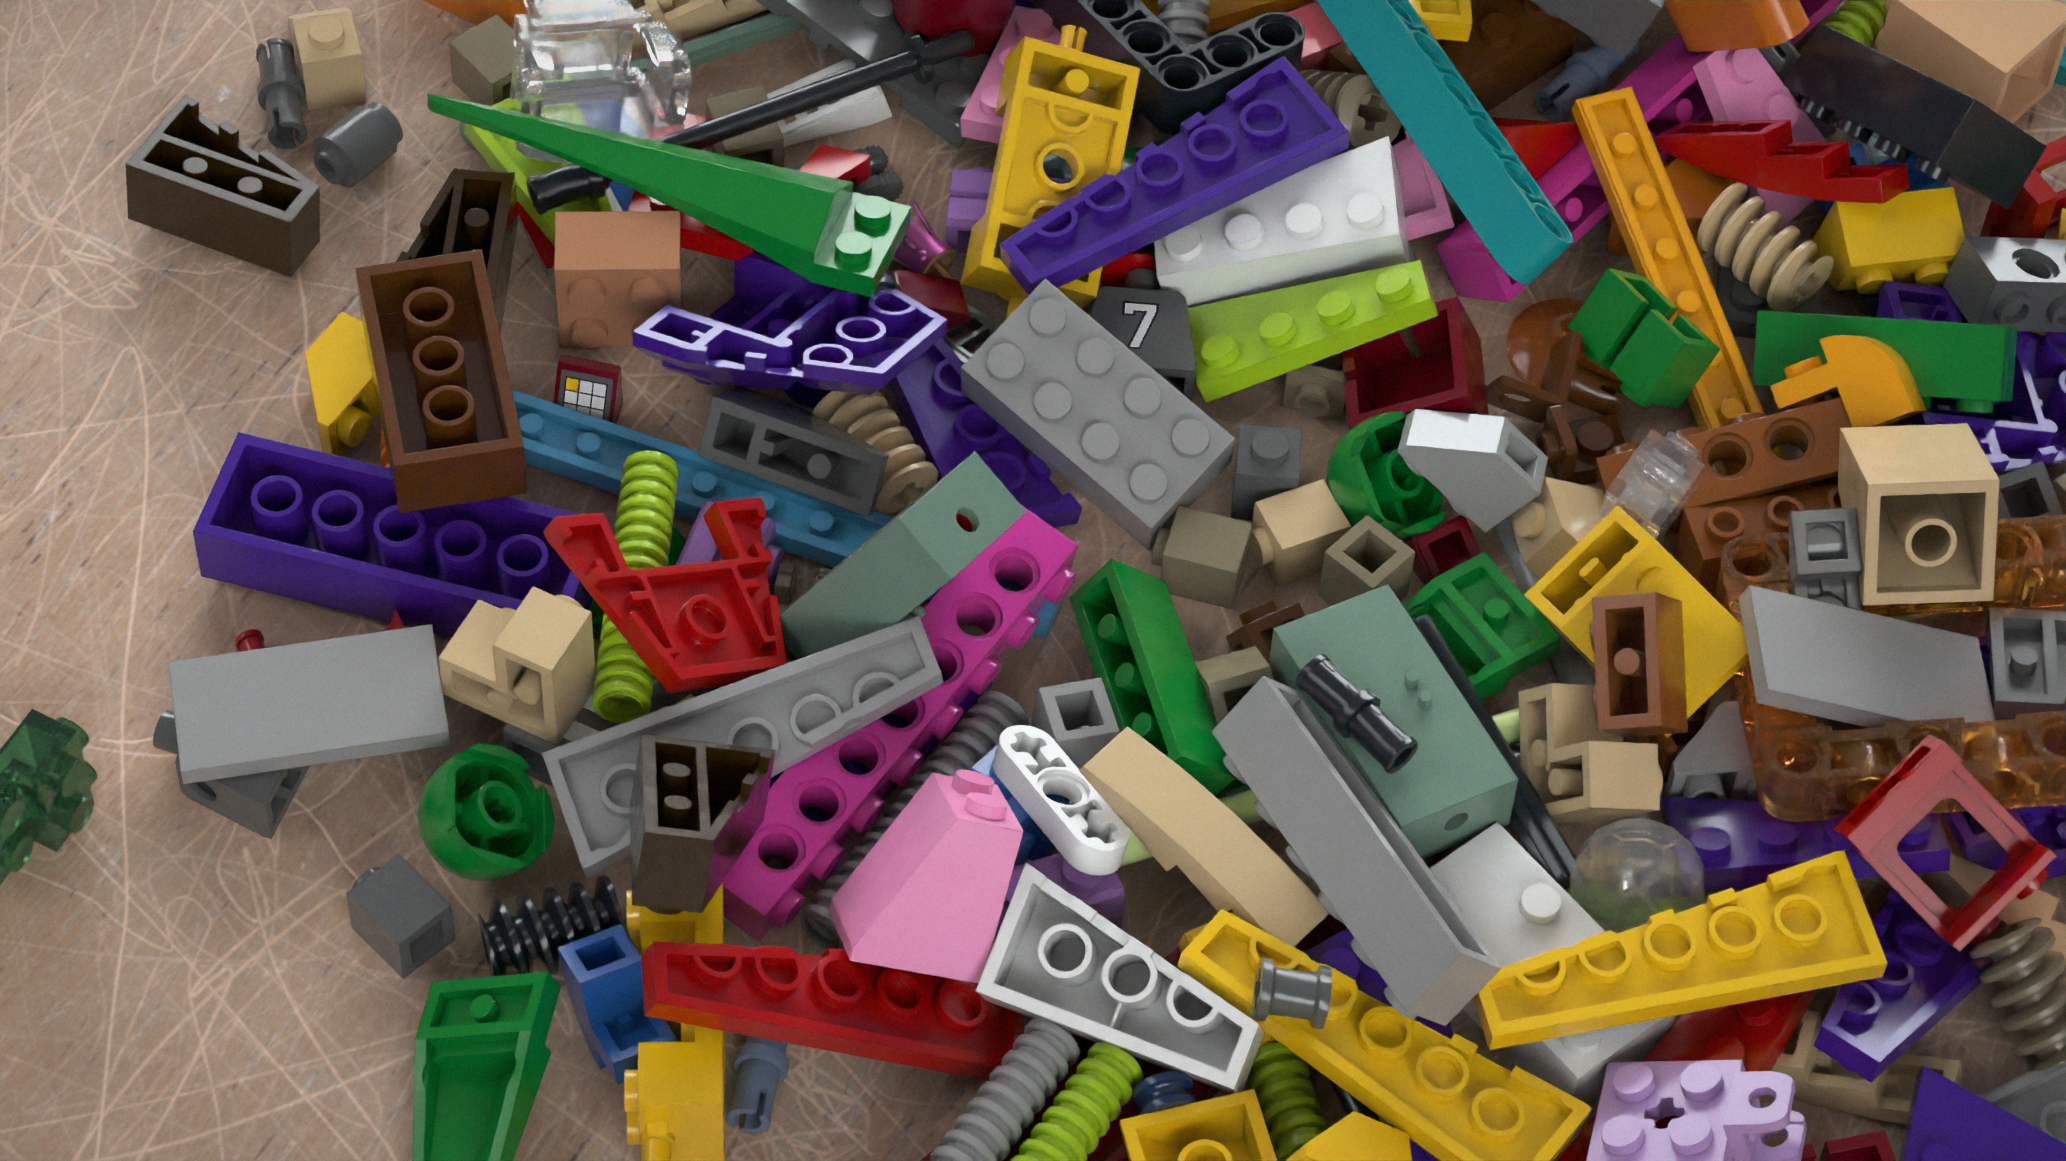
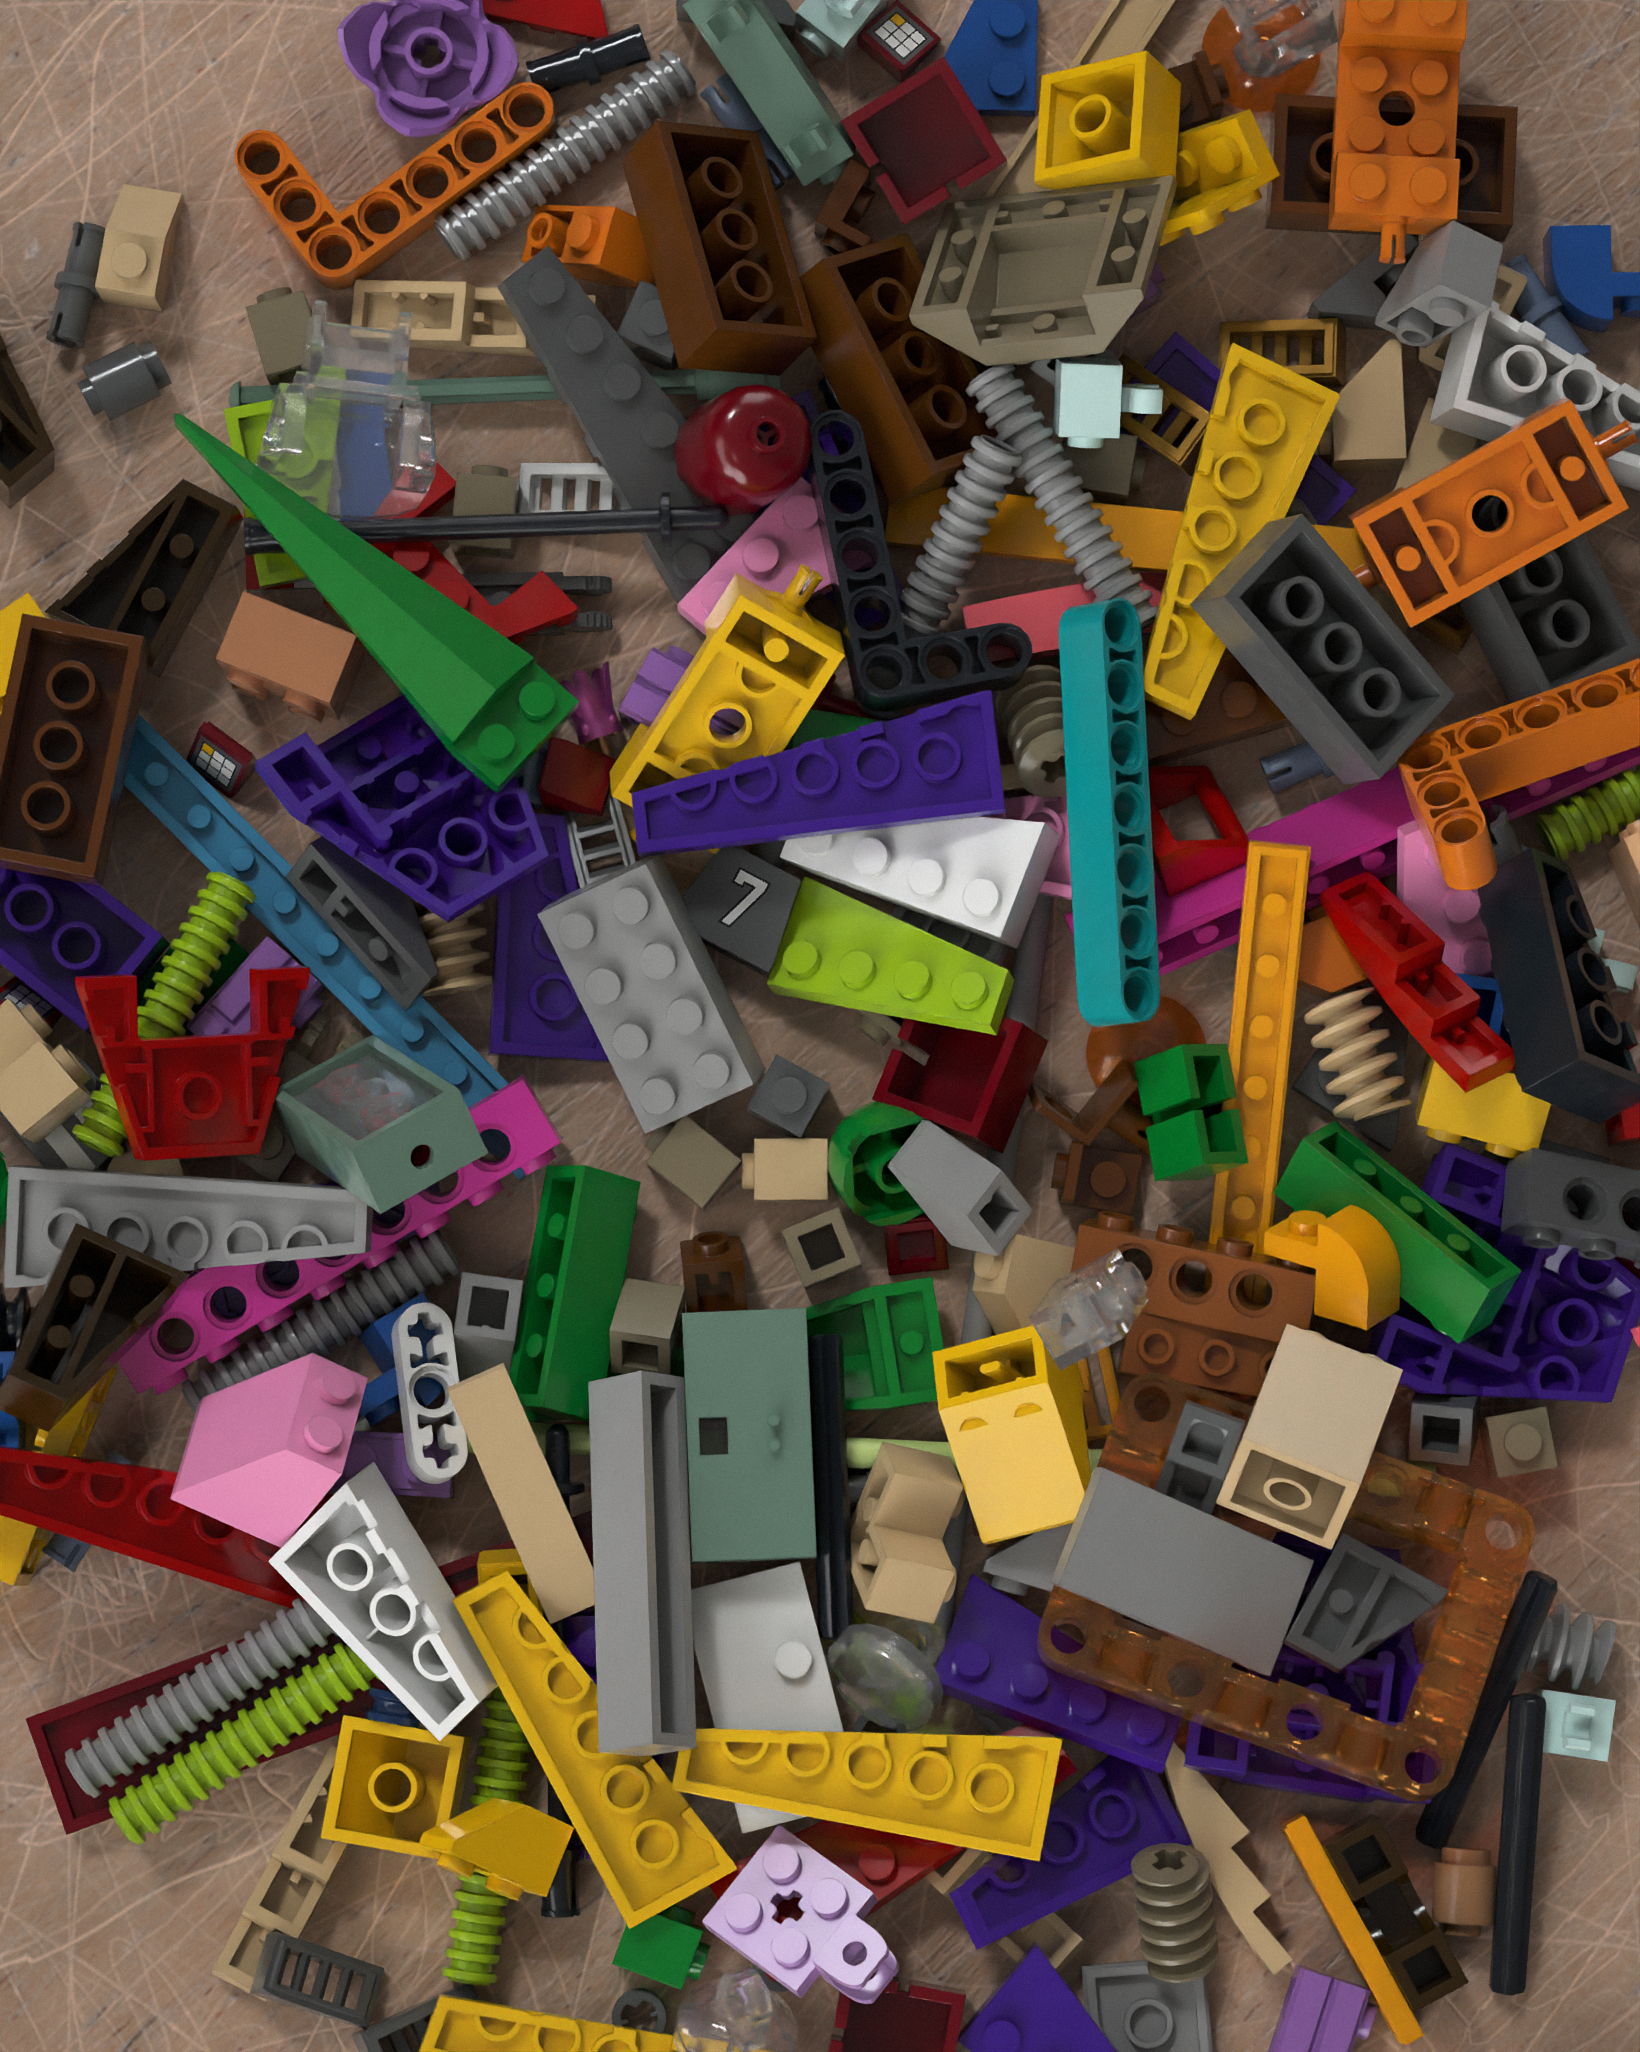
camera: 25 degrees right, 30 degrees up
(1291, 993) = (519, 1686): dark grey bush -> none
(1356, 713) = (700, 1446): black pin -> none
(1639, 665) = (970, 1500): dark orange brick -> none
(1902, 801) = (1139, 1719): red window -> none

